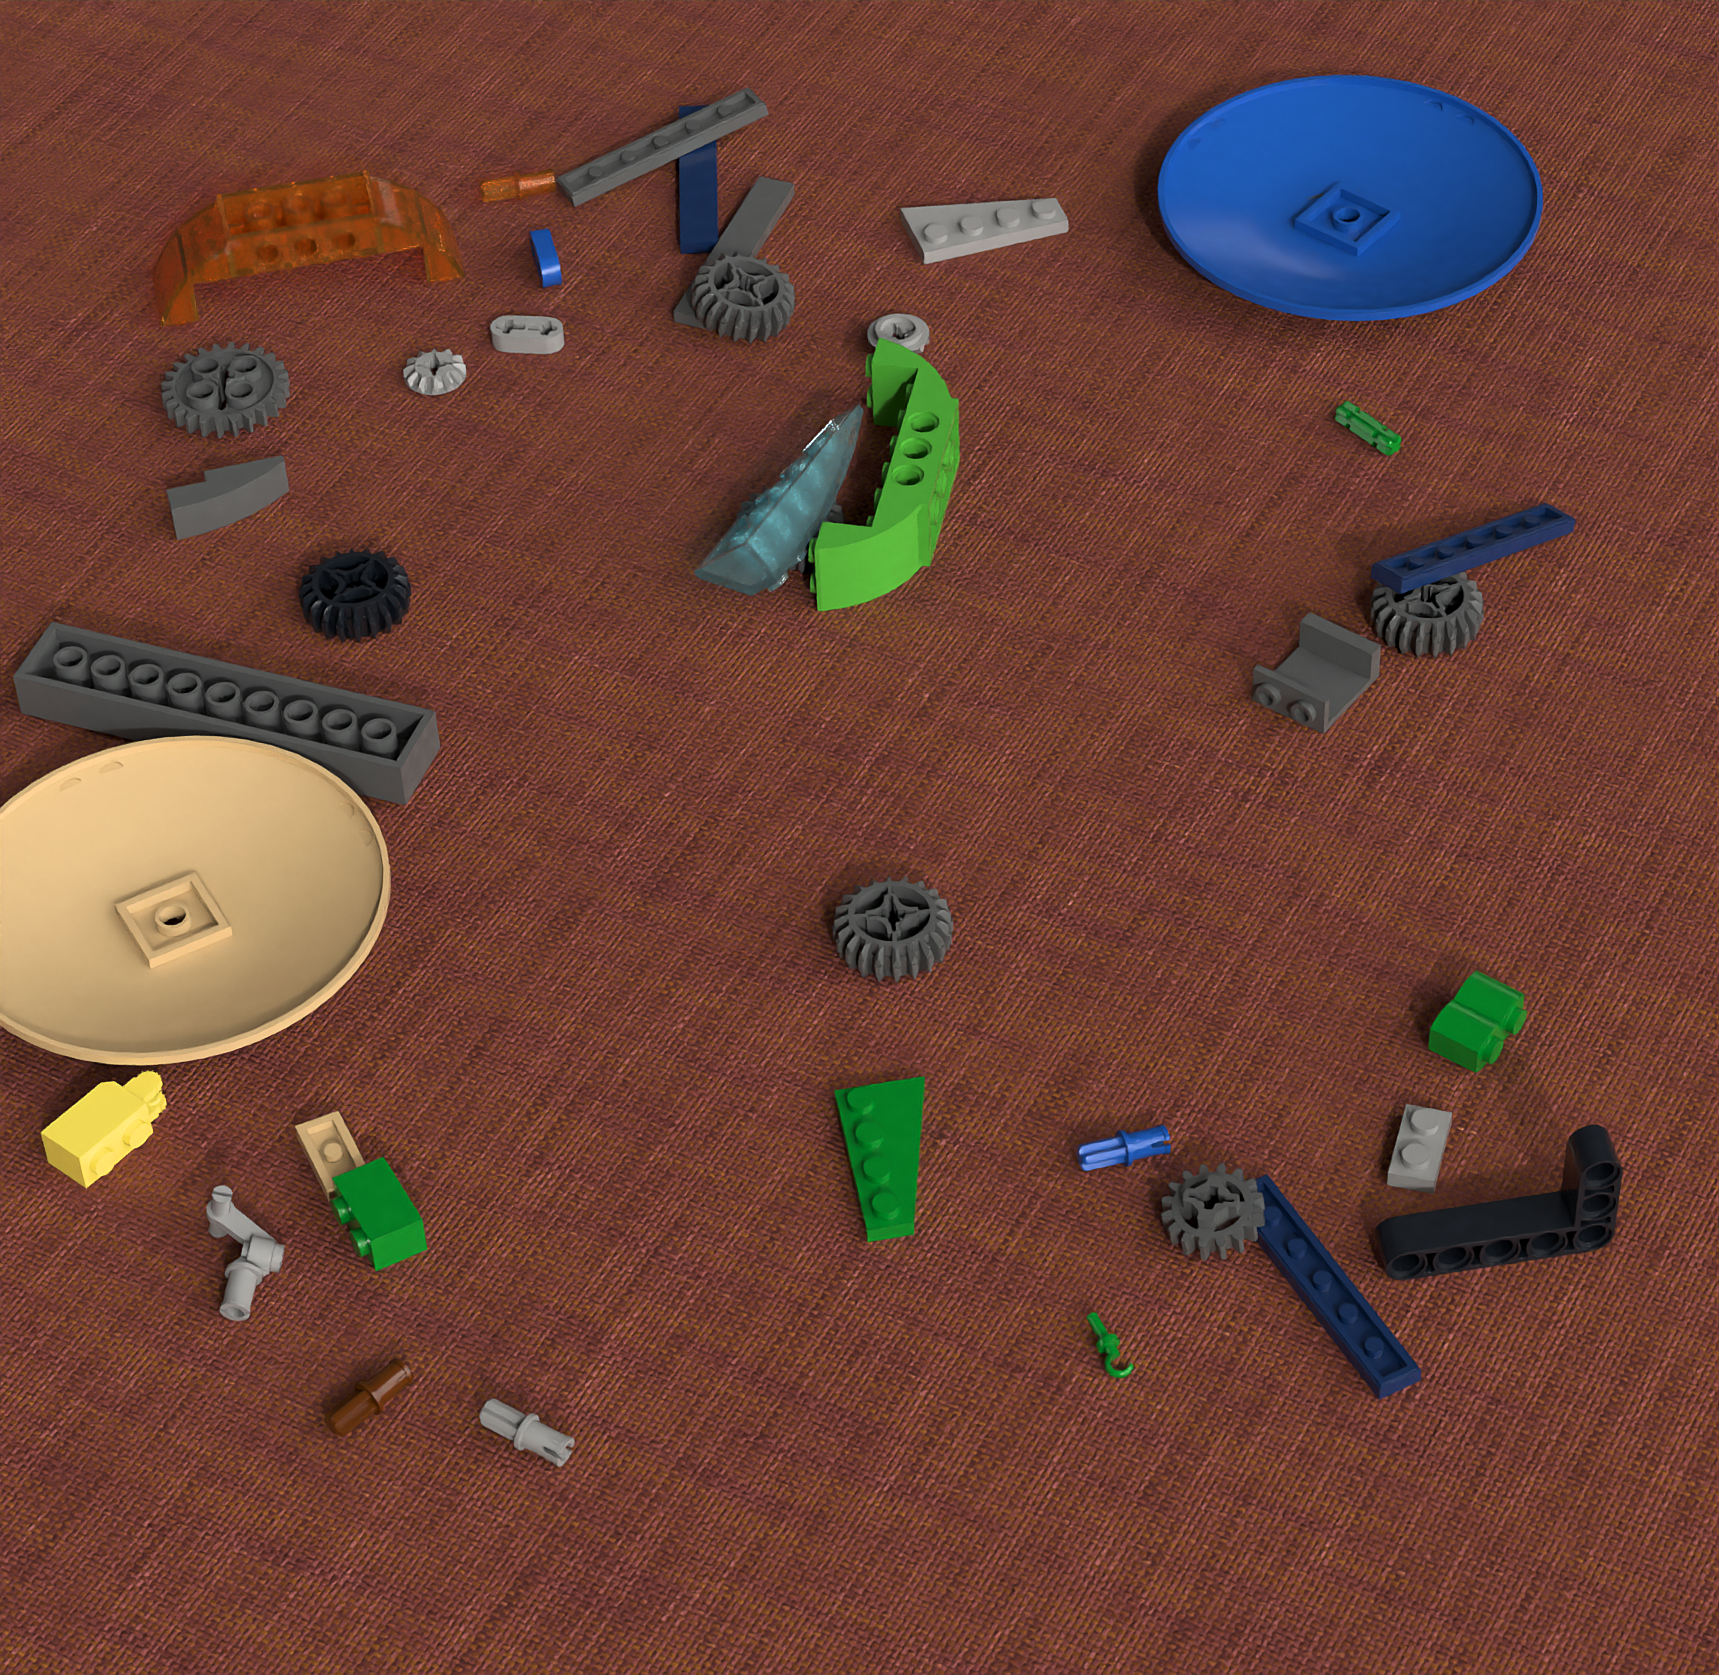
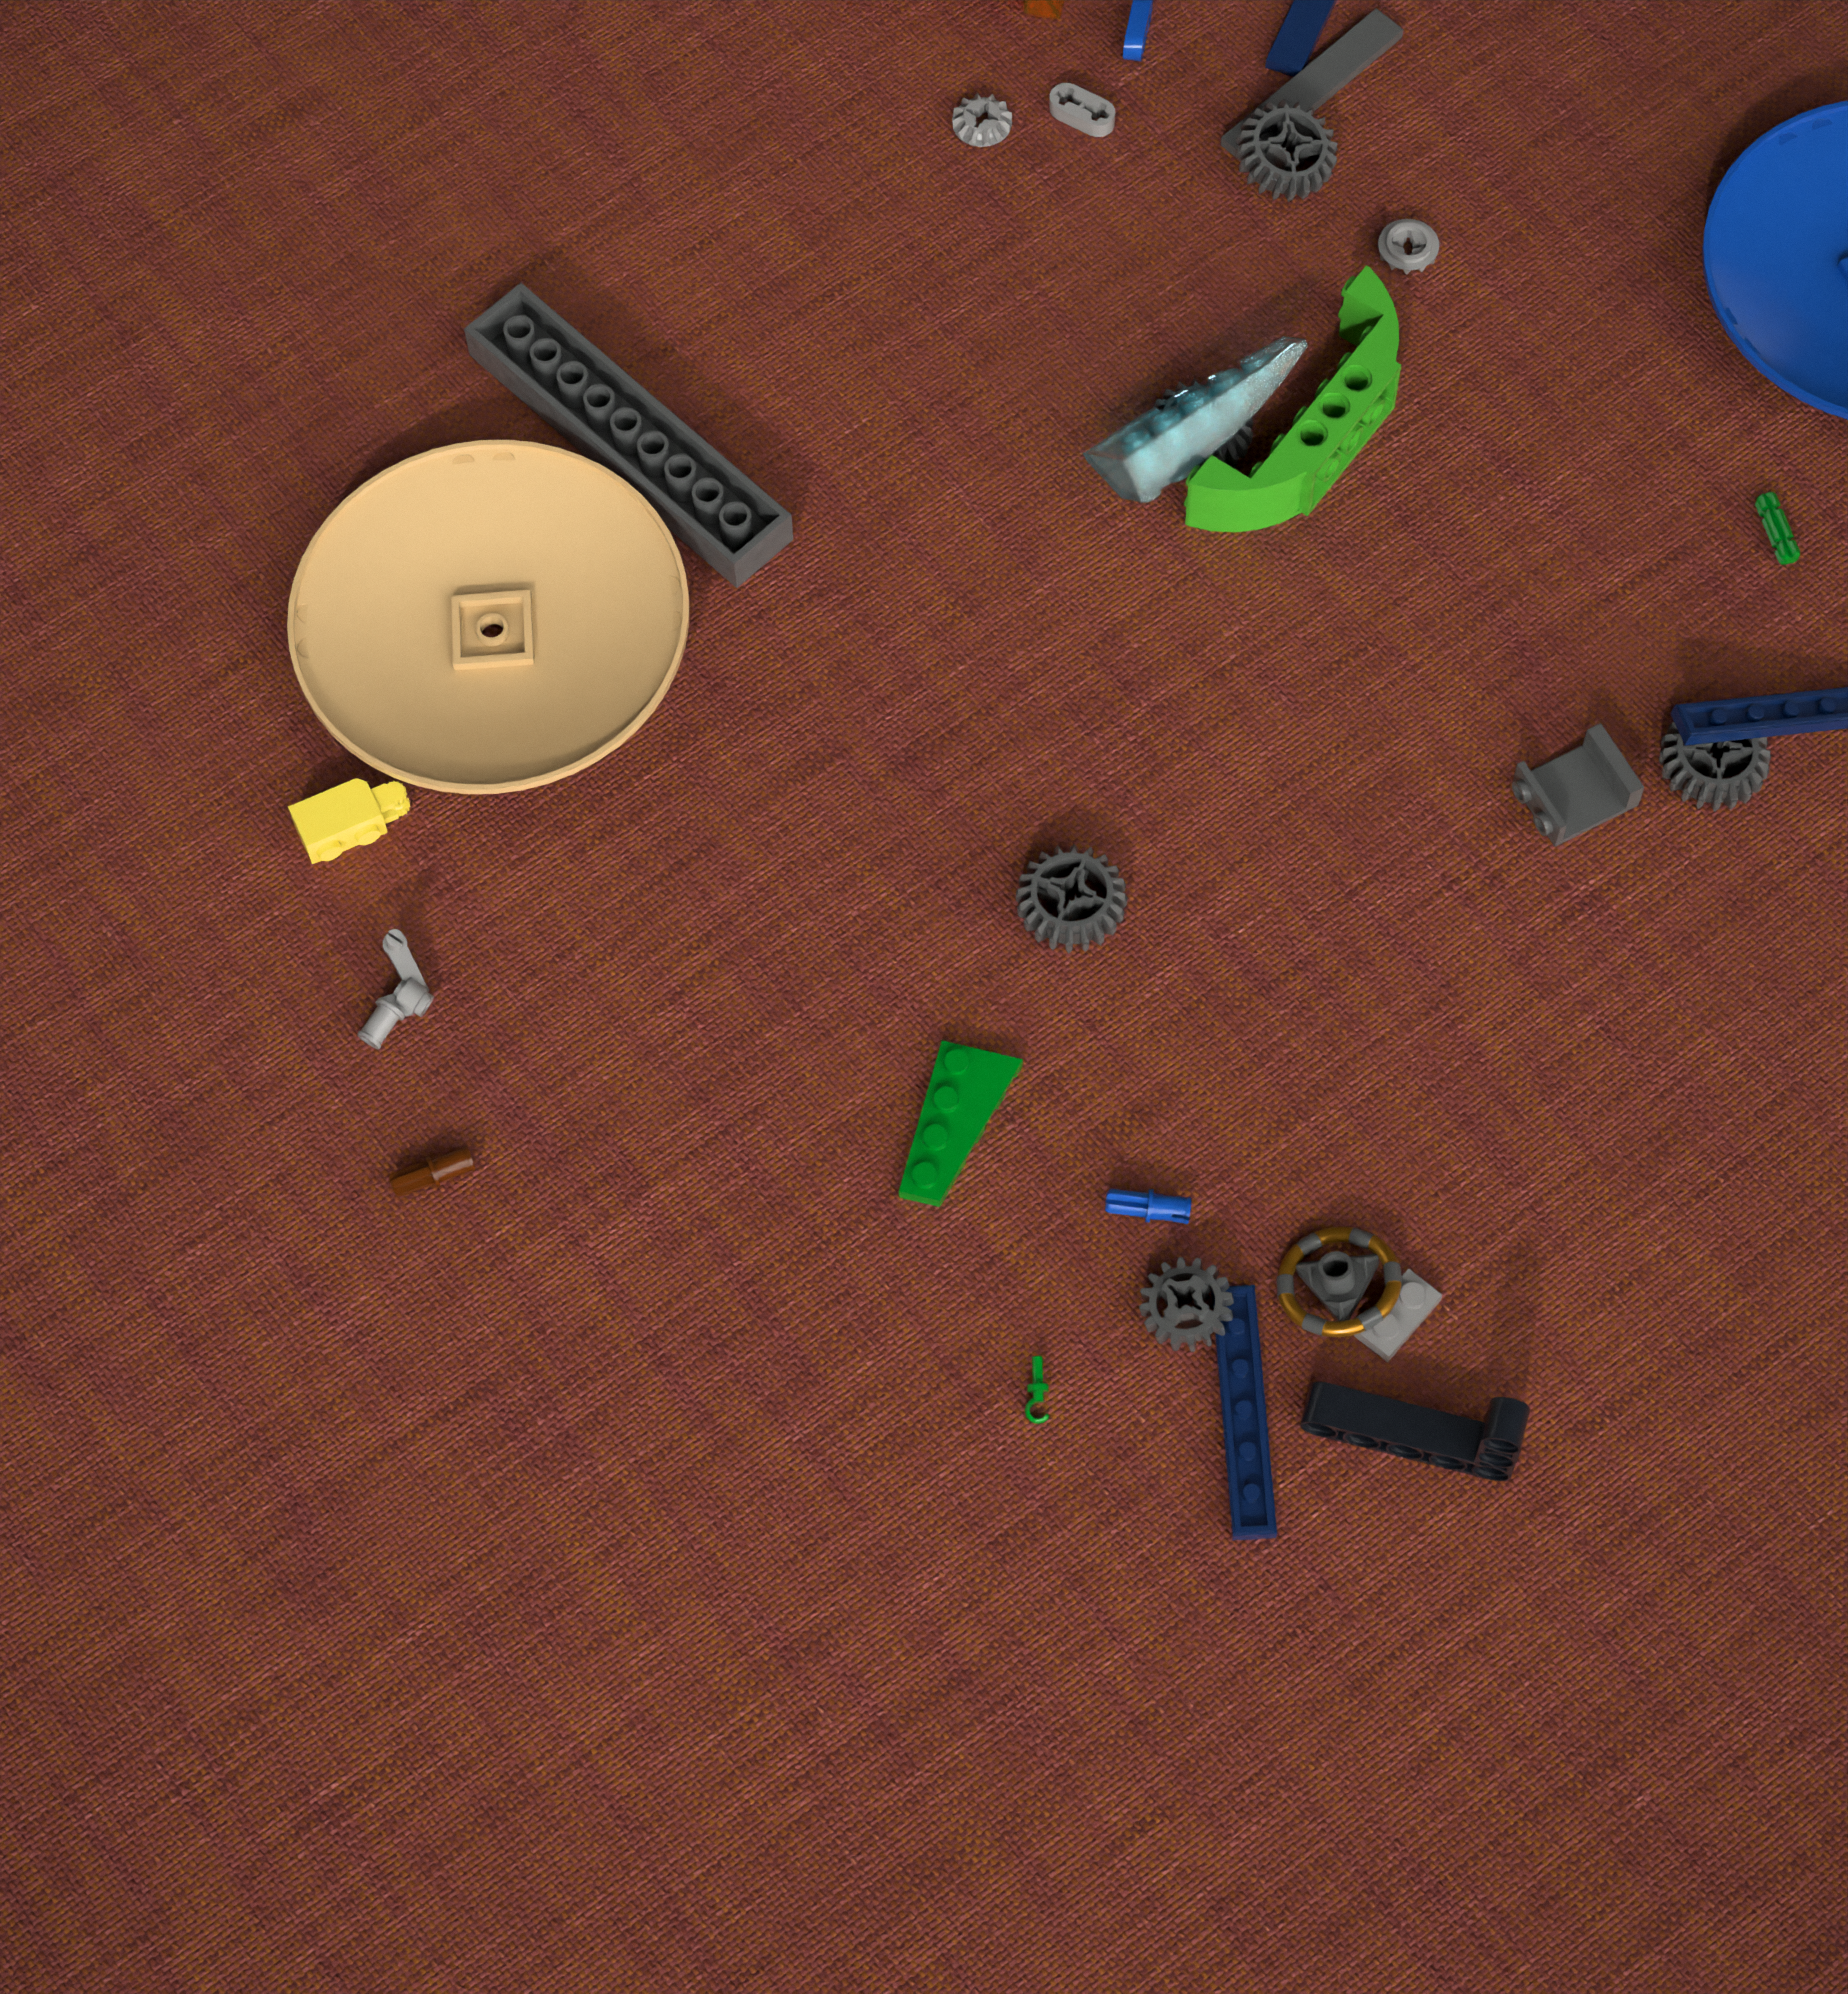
camera: 25 degrees right, 20 degrees up
(226, 496) = (737, 191): dark grey slope -> none
(252, 391) = (812, 75): dark grey gear -> none
(328, 1149) = (511, 925): tan plate -> none
(355, 595) = (791, 359): black gear -> none
(378, 1214) = (519, 999): green brick -> none
(526, 1431) = (538, 1261): light grey axle -> none
(976, 227) = (1544, 145): light grey wing -> none
(1346, 1138) = (1339, 1281): none -> dark grey piece
(1477, 1022) = (1514, 1214): green brick -> none

